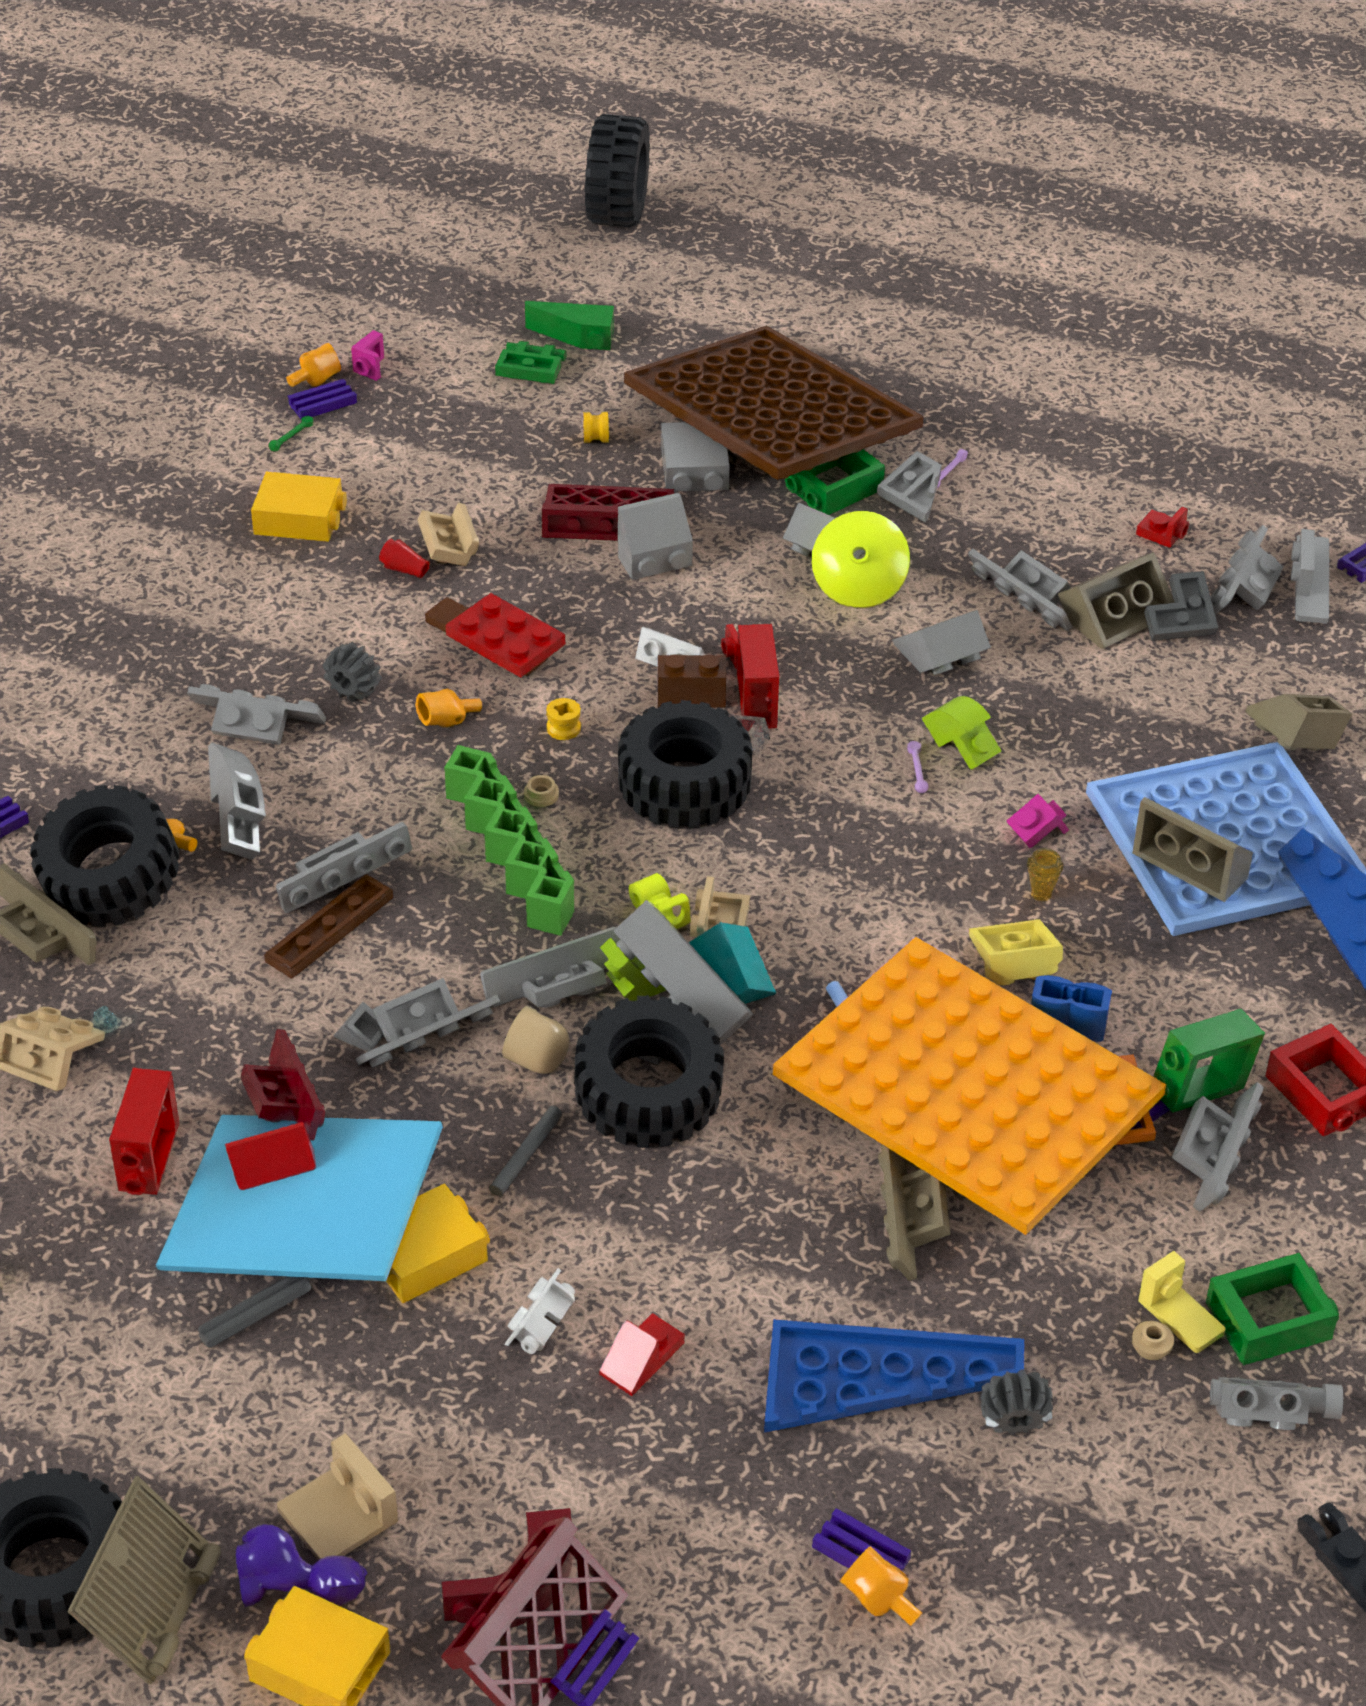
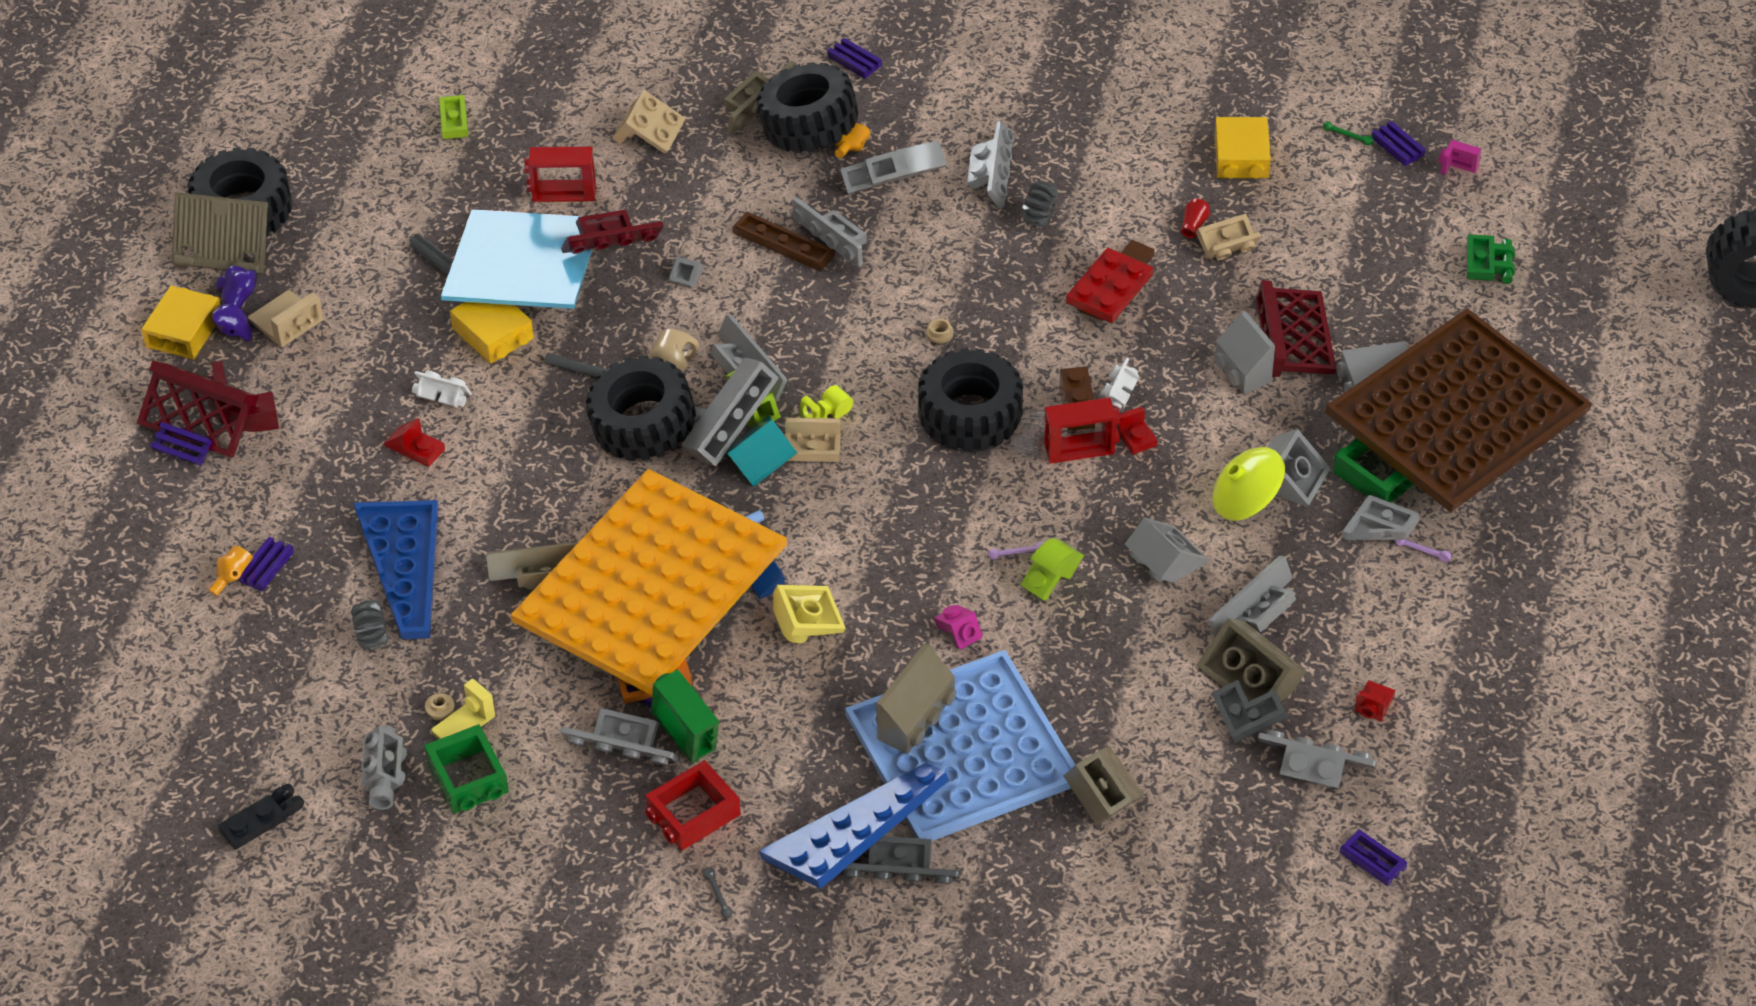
camera: 85 degrees right, 5 degrees up
(105, 1020) = (678, 149): clear light blue rock -> none
(271, 1156) = (545, 236): red slope -> none
(316, 366) = (1433, 129): light orange piece -> none
(418, 1015) = (692, 294): light grey bracket -> none
(444, 708) = (1019, 264): light orange piece -> none
(511, 838) = (873, 317): bright green brick -> none
(563, 718) = (1022, 332): yellow wheel -> none
(571, 323) = (1550, 283): green slope -> none
(596, 427) = (1402, 308): yellow wheel -> none
(1044, 871) = (885, 620): clear yellow cone -> none
(1076, 1005) = (739, 642): blue brick -> none
(1311, 577) = (1327, 803): light grey bracket -> none

